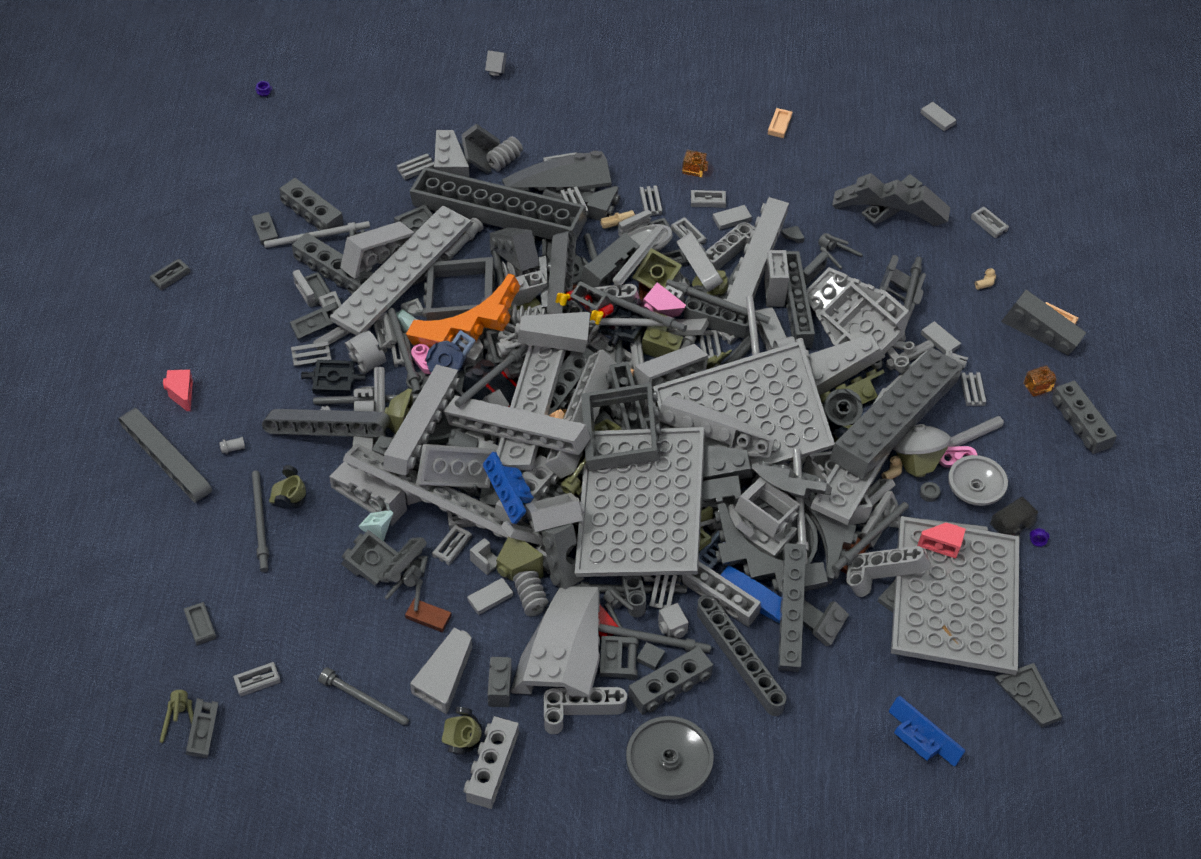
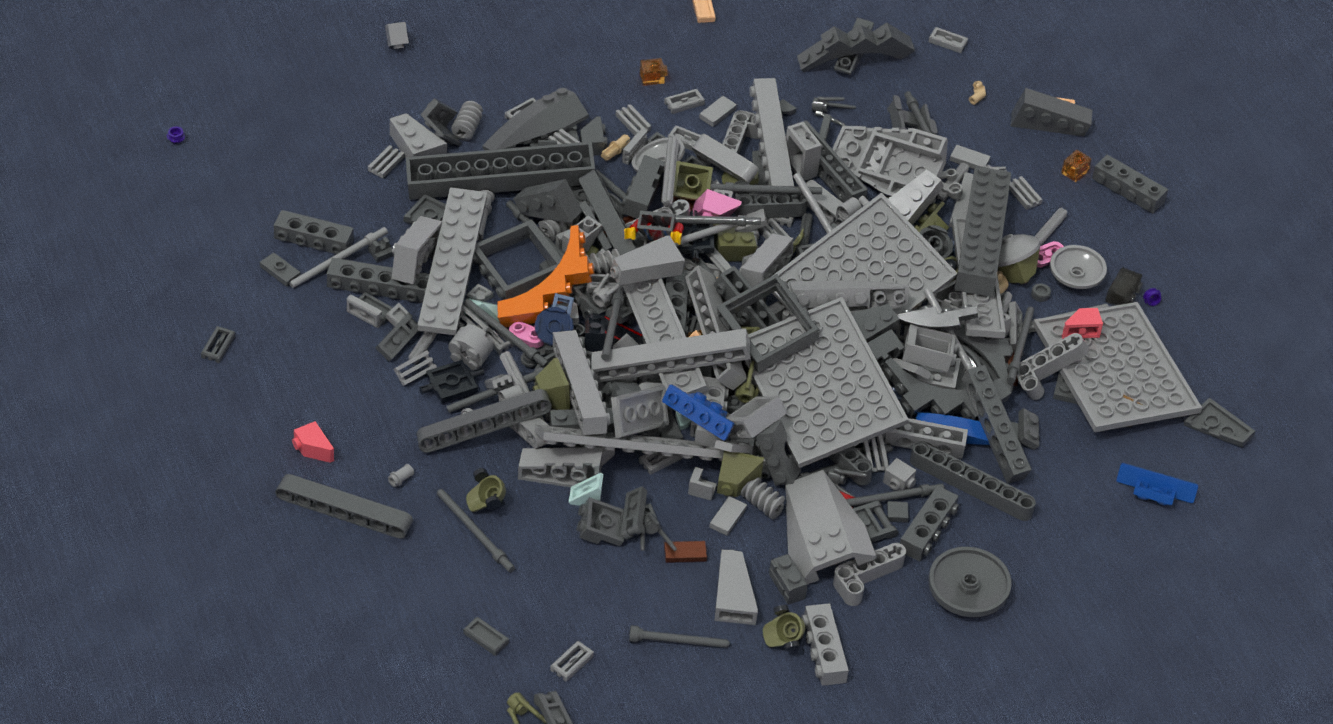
camera: 30 degrees left, 5 degrees down
(443, 557) = (663, 498): light grey tile -> none

